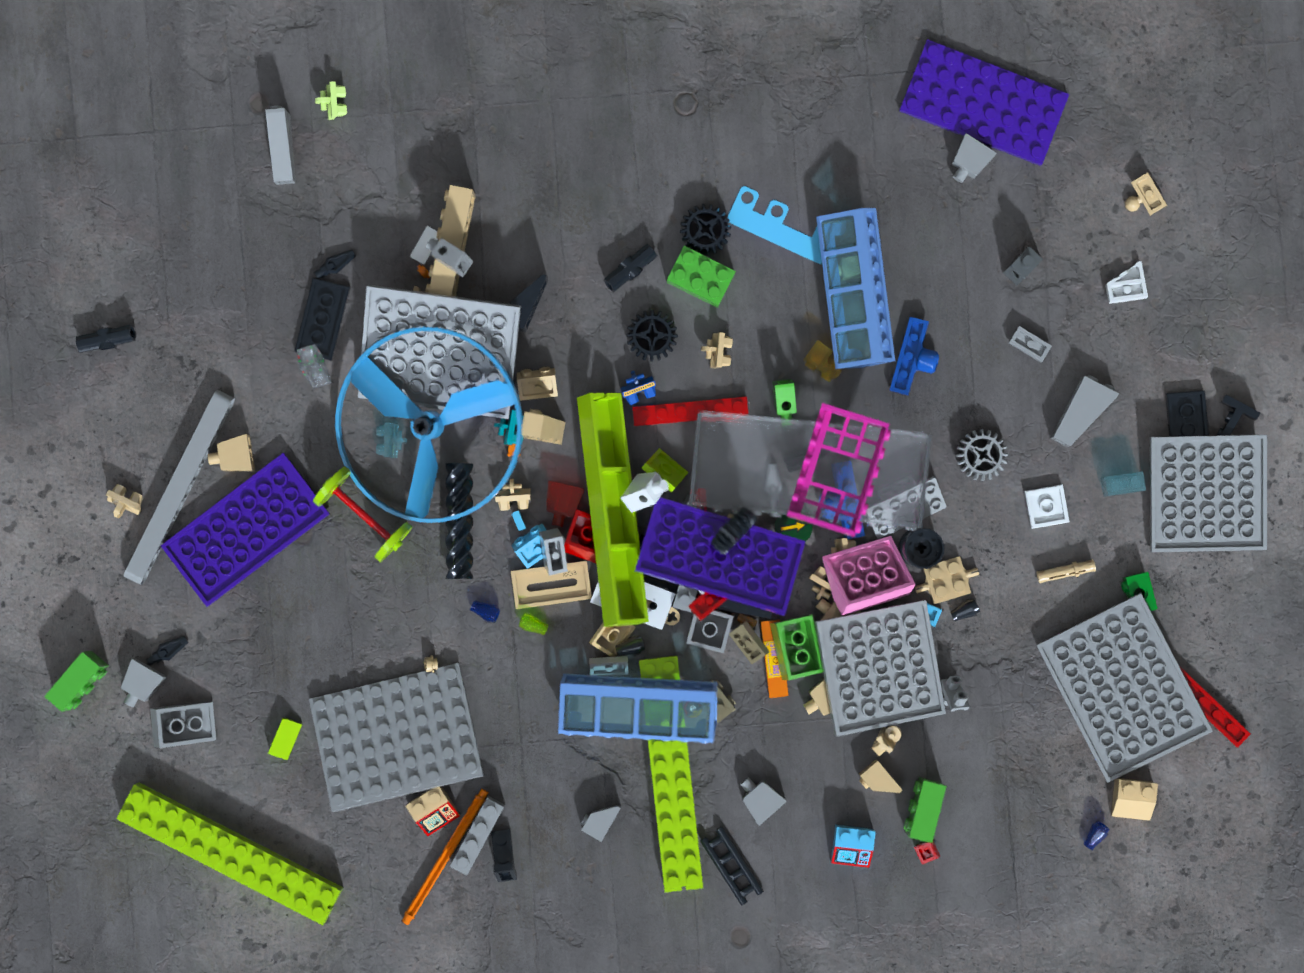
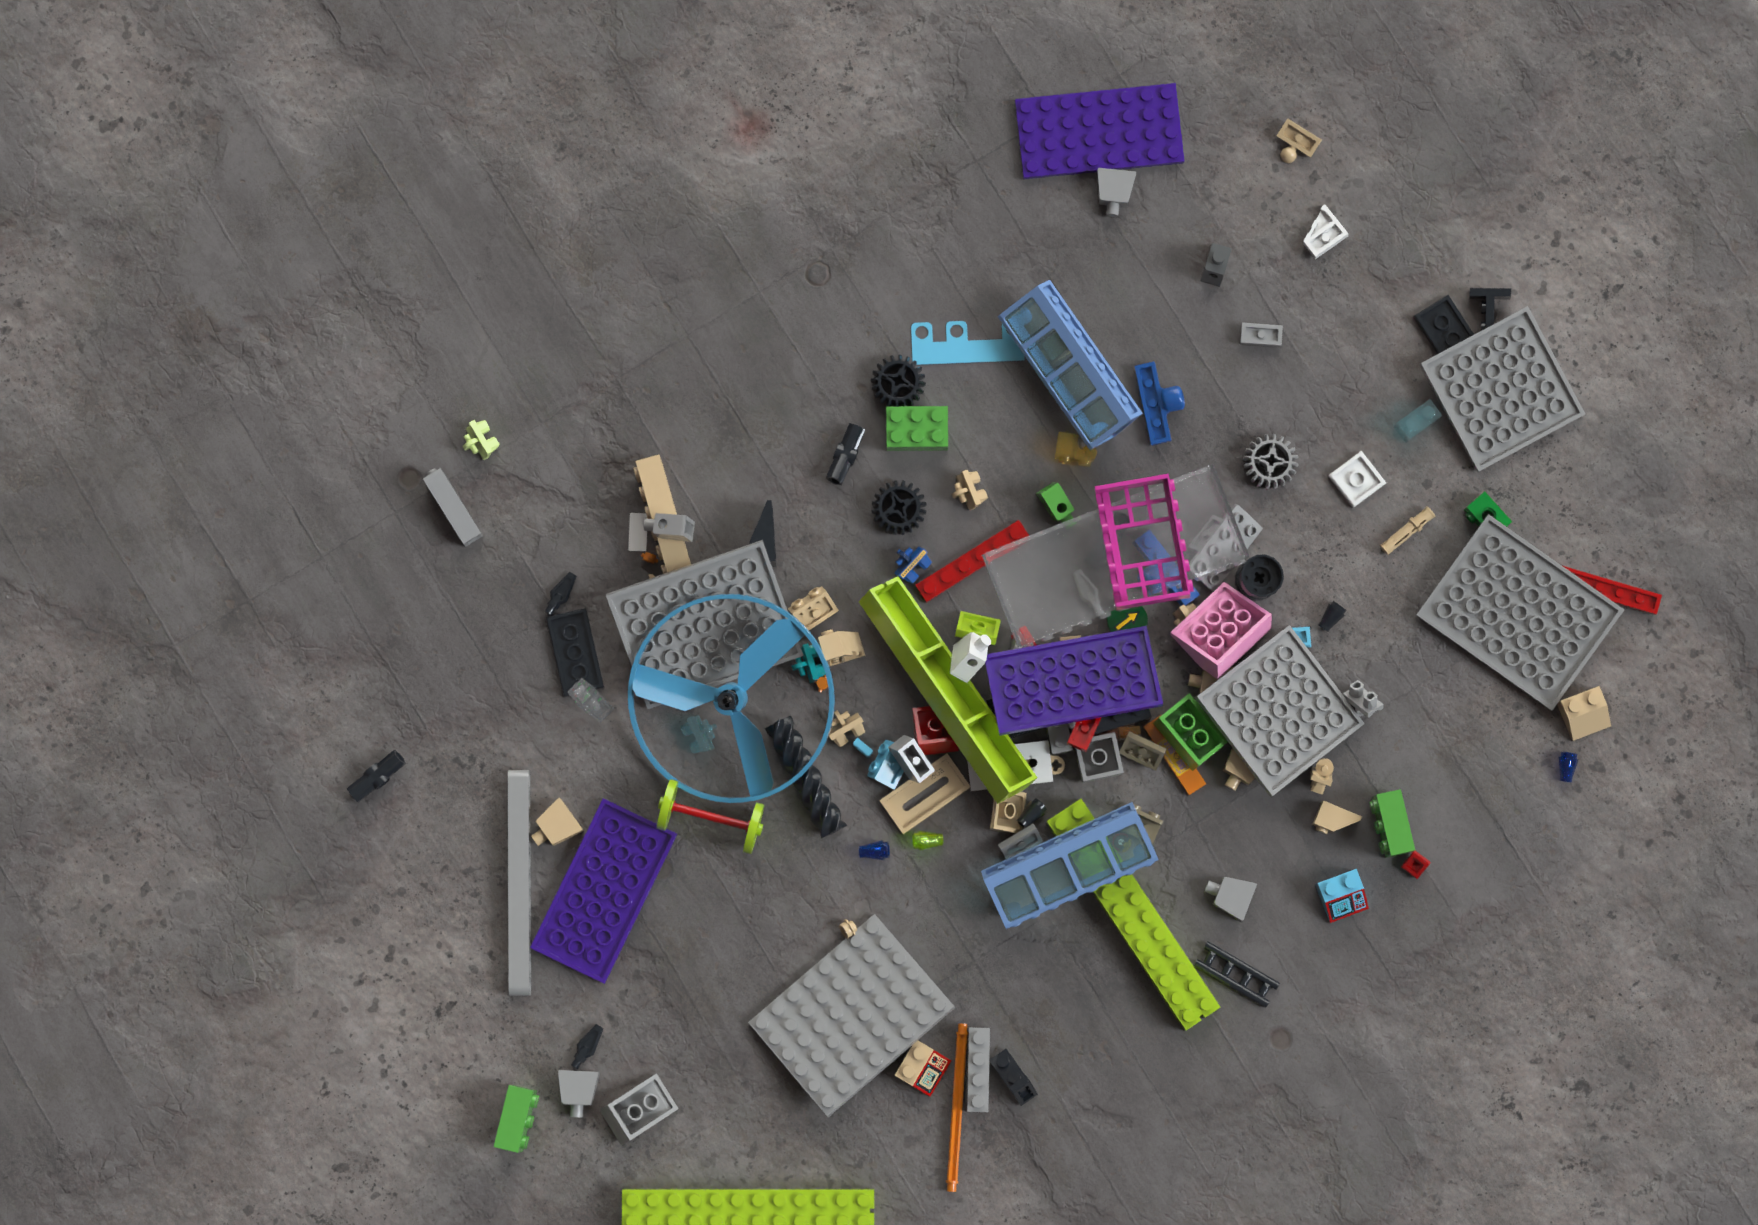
camera: 25 degrees left, 5 degrees down
(117, 497) = (472, 925): tan hips -> none
(285, 738) = (744, 1072): lime slope -> none
(562, 501) = (895, 708): clear red torso -> none
(599, 821) = (1088, 997): light grey slope -> none
(734, 530) = (1074, 648): black gear -> none
(818, 577) = (1176, 656): tan hips -> none
(947, 580) = (1299, 597): tan plate -> none
(1083, 409) = (1343, 369): light grey slope -> none

